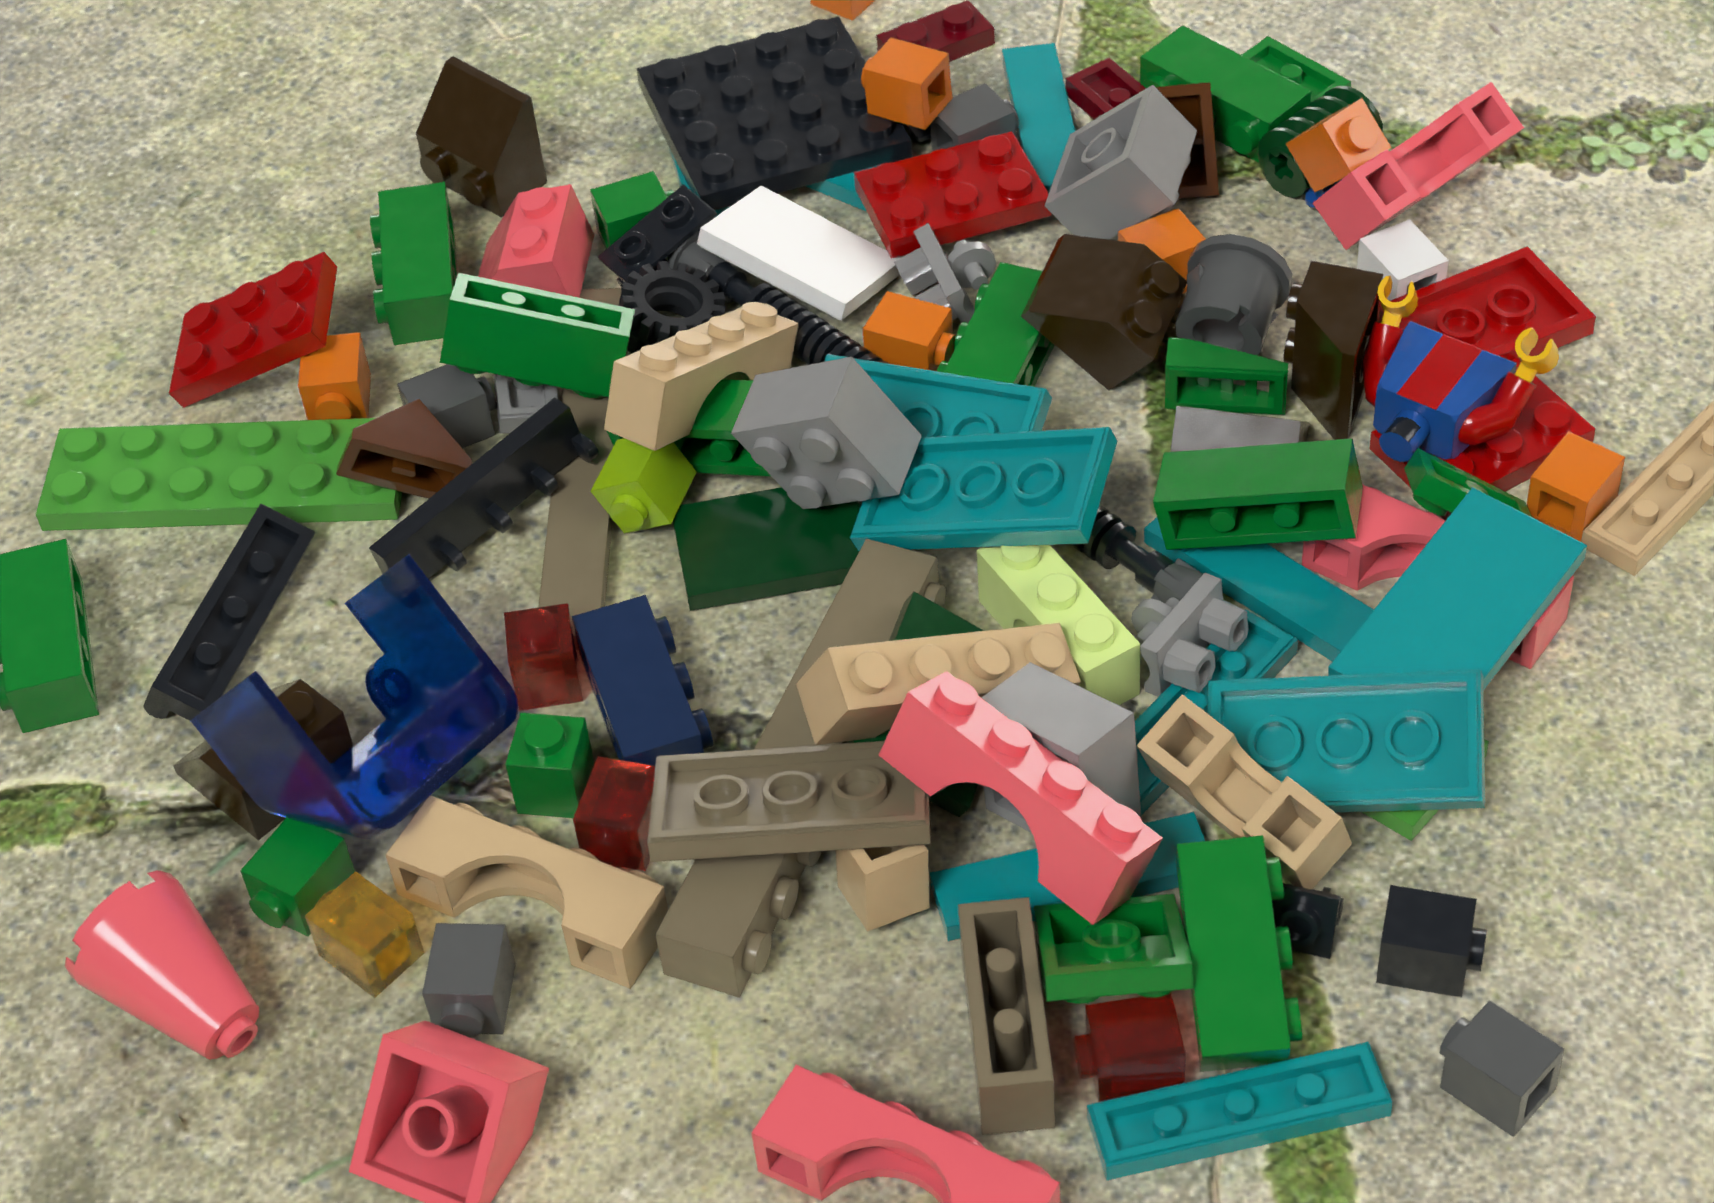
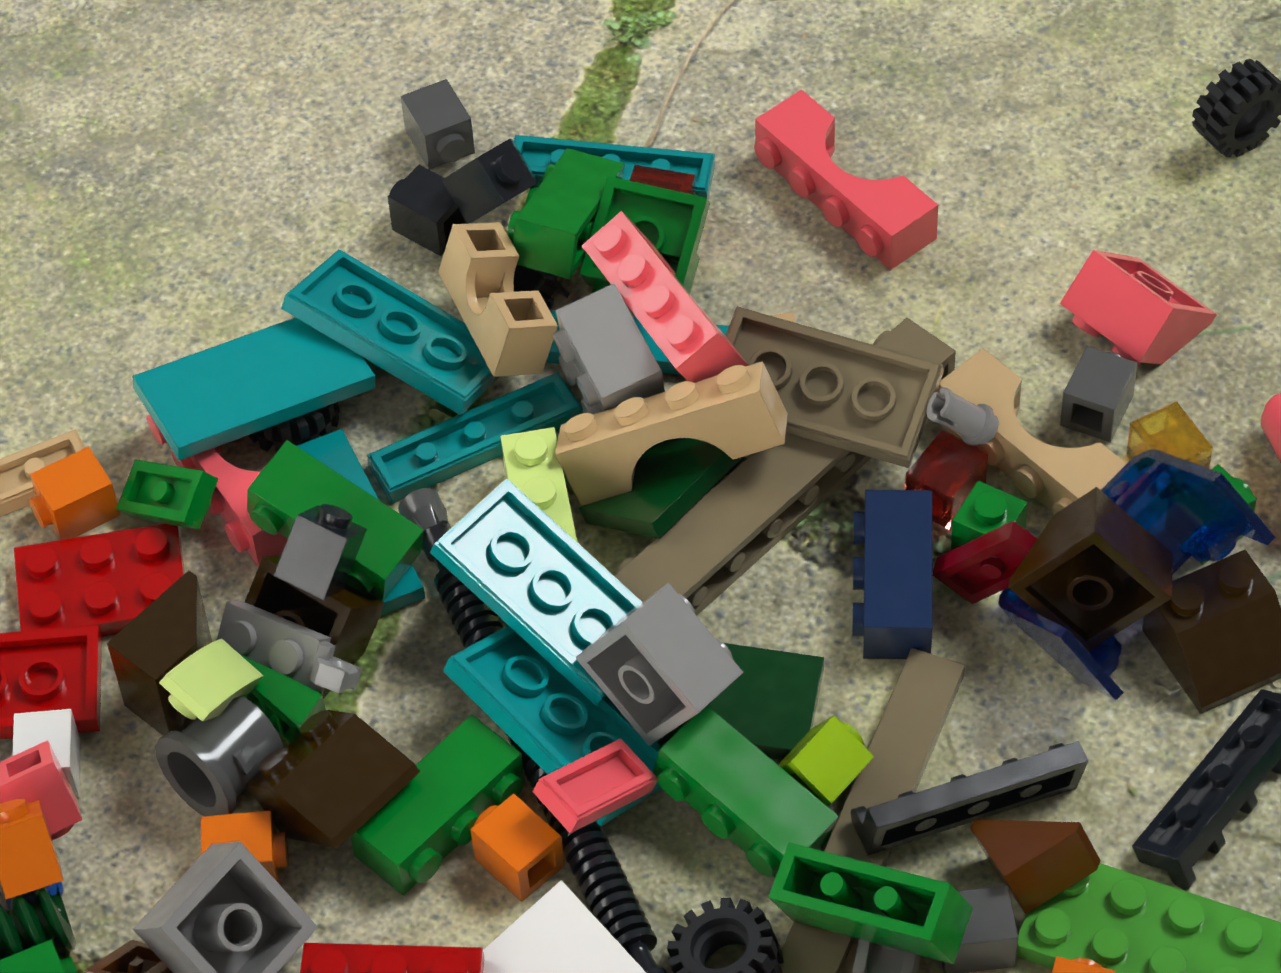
camera: 160 degrees left, 5 degrees up
(389, 673) = (1094, 570): none -> dark brown slope
(509, 683) = (984, 563): none -> dark red plate
(543, 656) = (966, 625): clear red brick -> none
(596, 827) = (974, 422): none -> light grey pin
(665, 383) = (772, 760): tan arch -> none
(854, 329) = (595, 785): none -> coral tile
(965, 267) = (441, 904): light grey hips -> none
(1006, 1016) = (735, 234): dark tan brick -> none
(1178, 631) = (459, 468): light grey hips -> none
(1224, 393) = (286, 648): none -> light grey hinge
(1233, 414) = (321, 550): none -> brick
(1257, 286) = (209, 681): none -> yellowish green slope
(1346, 958) = (489, 181): none -> black slope
(1442, 390) = (116, 562): torso -> none

